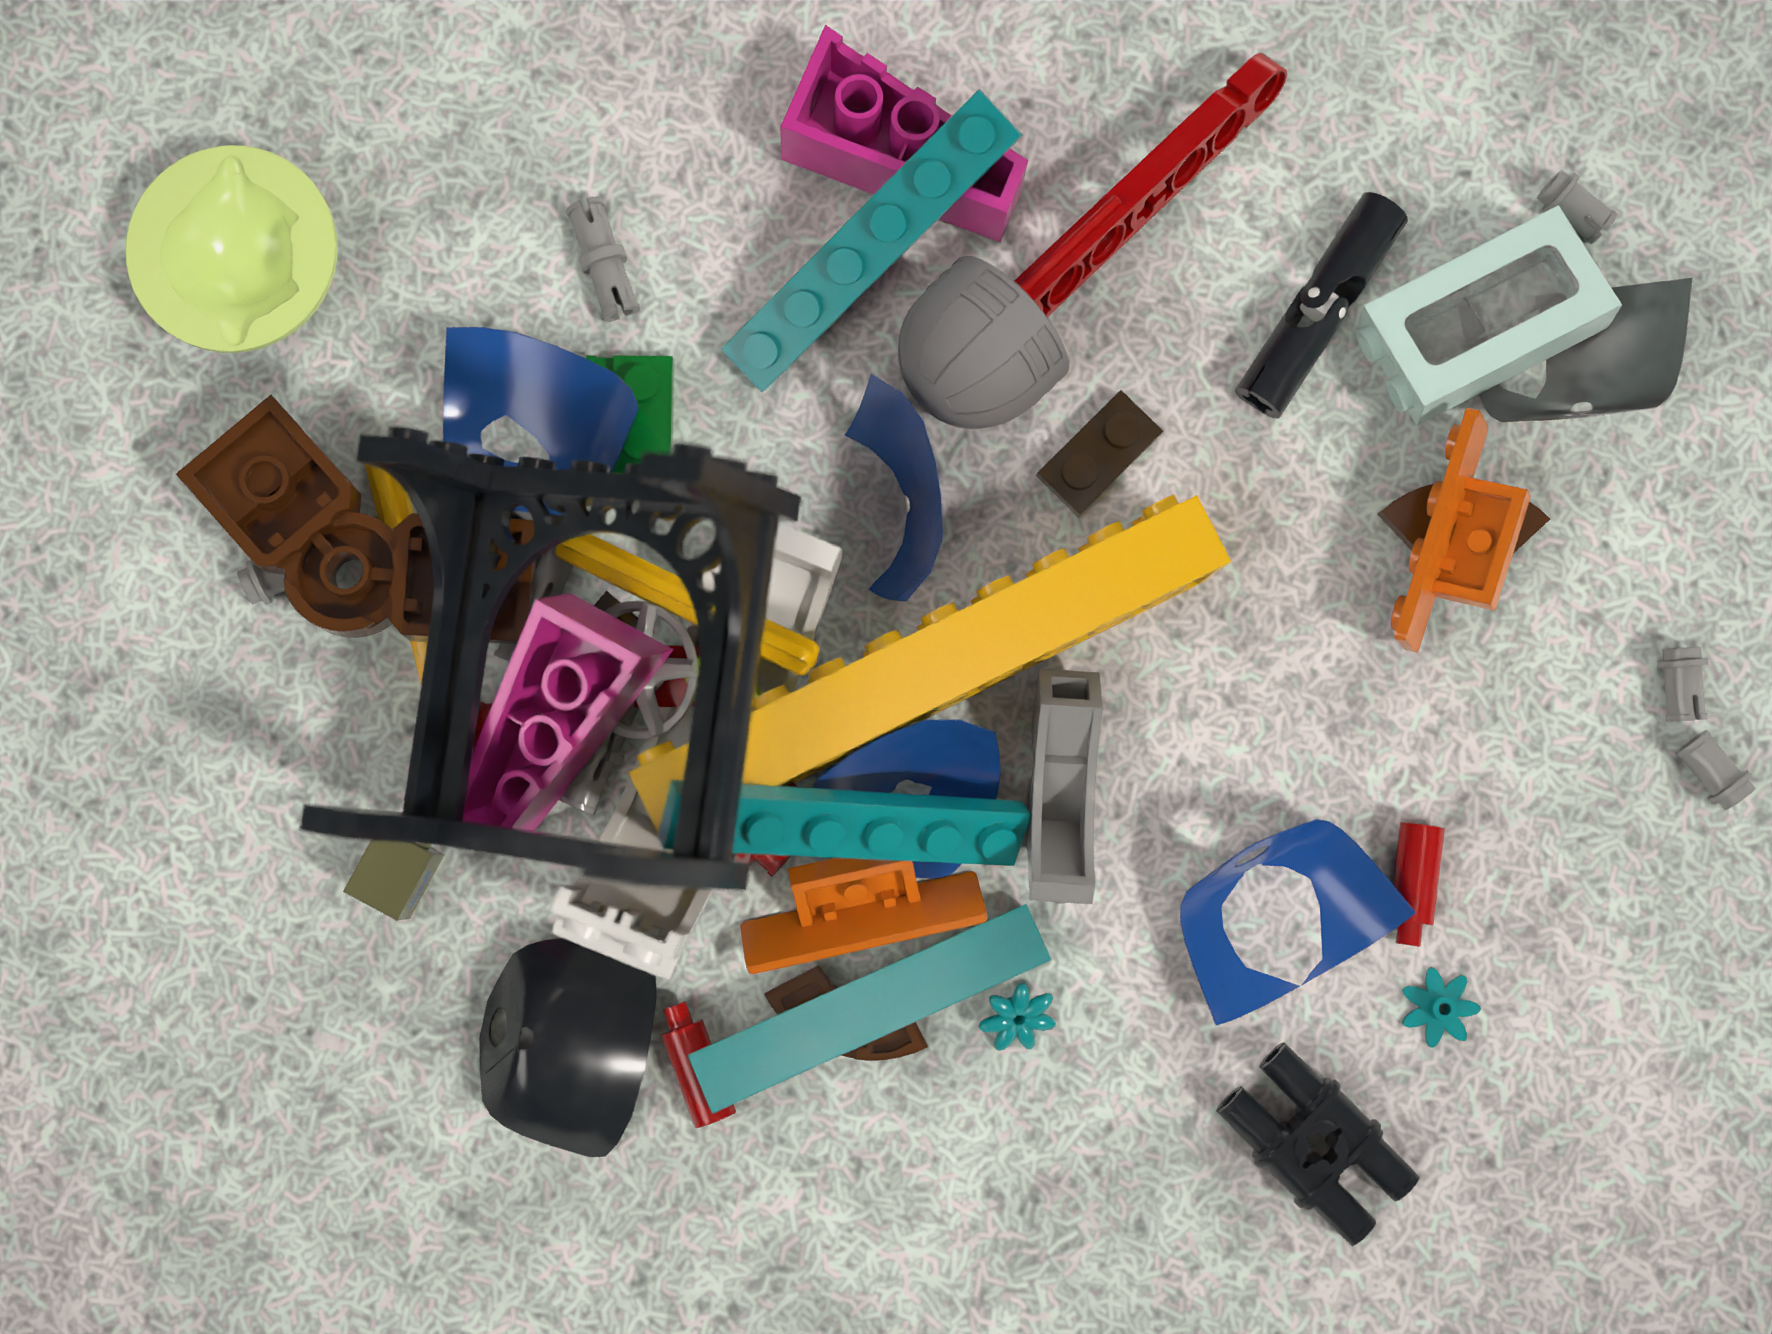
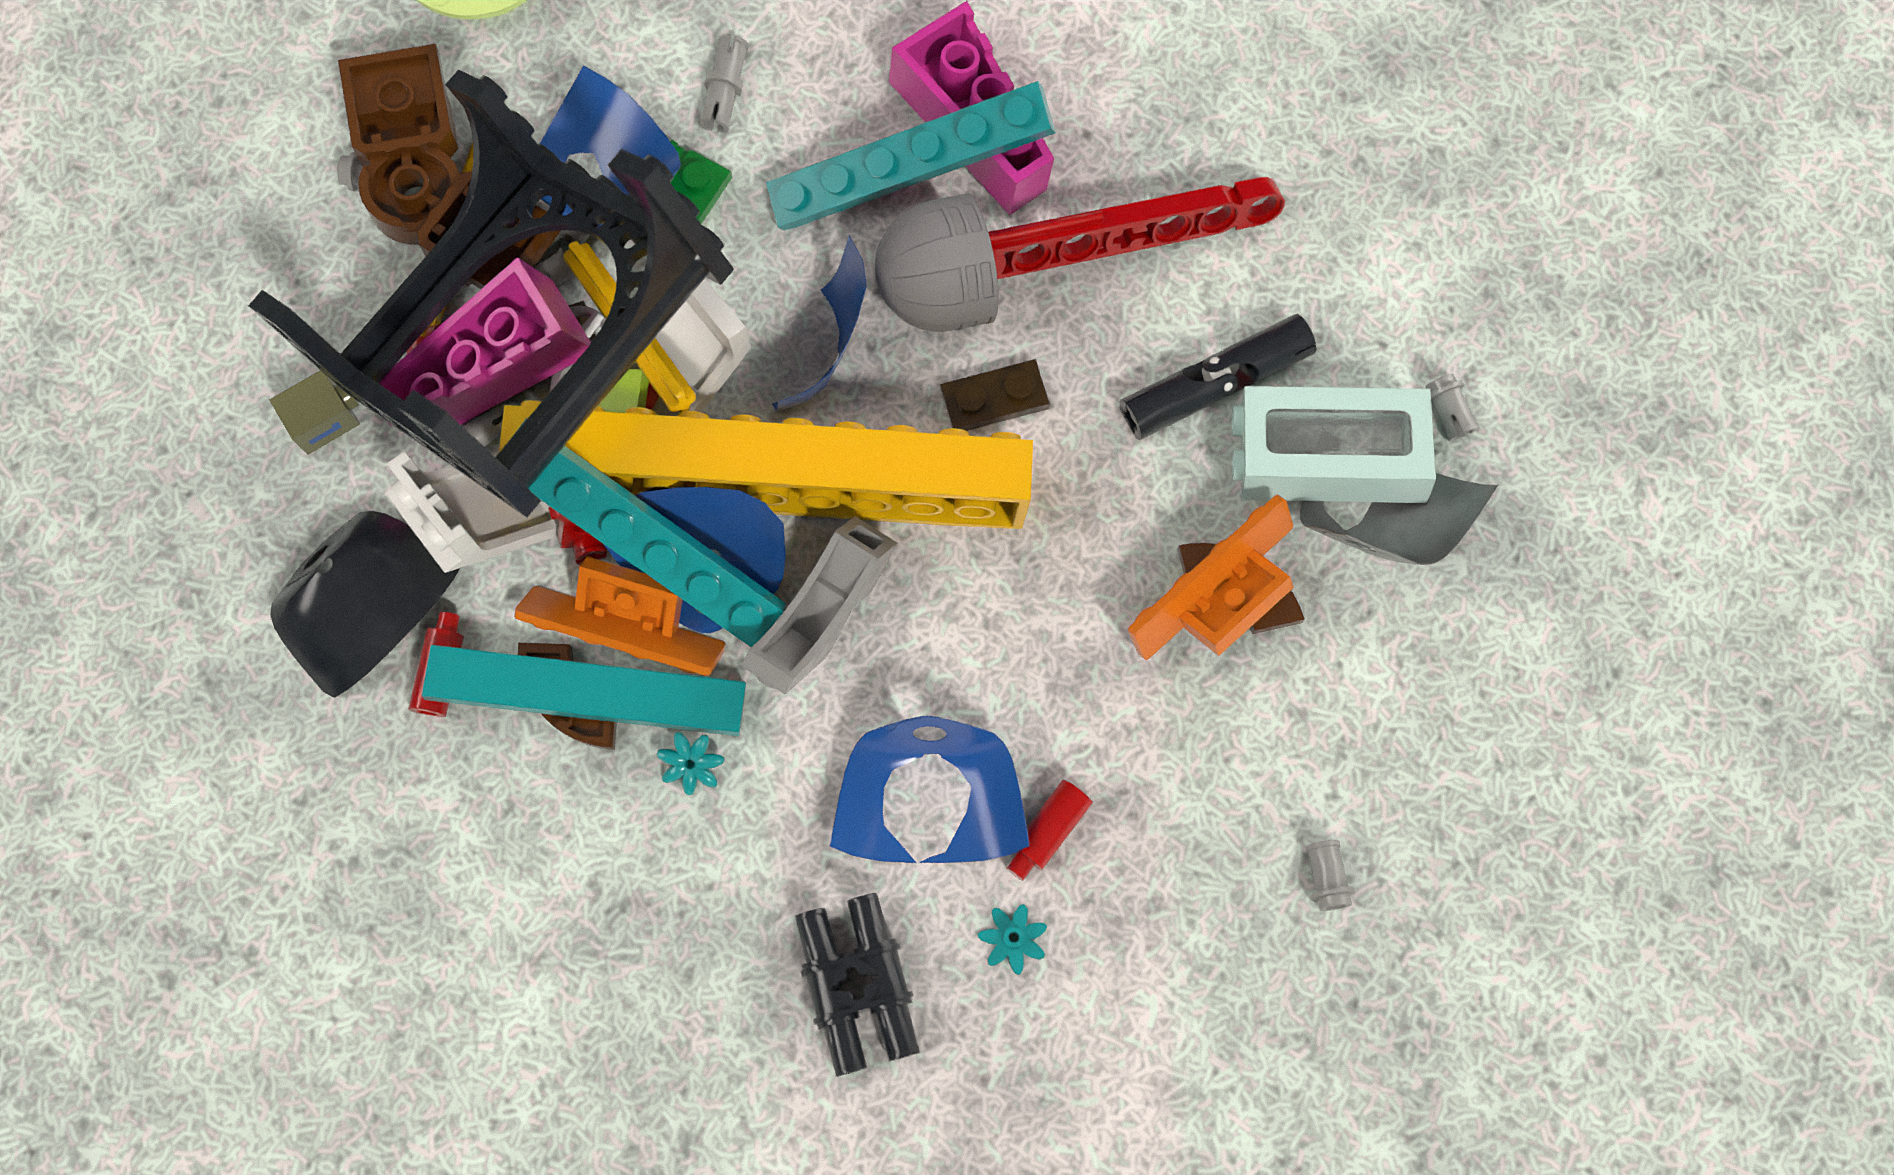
camera: 30 degrees right, 10 degrees down
(1684, 683) = (1341, 796): light grey pin -> none

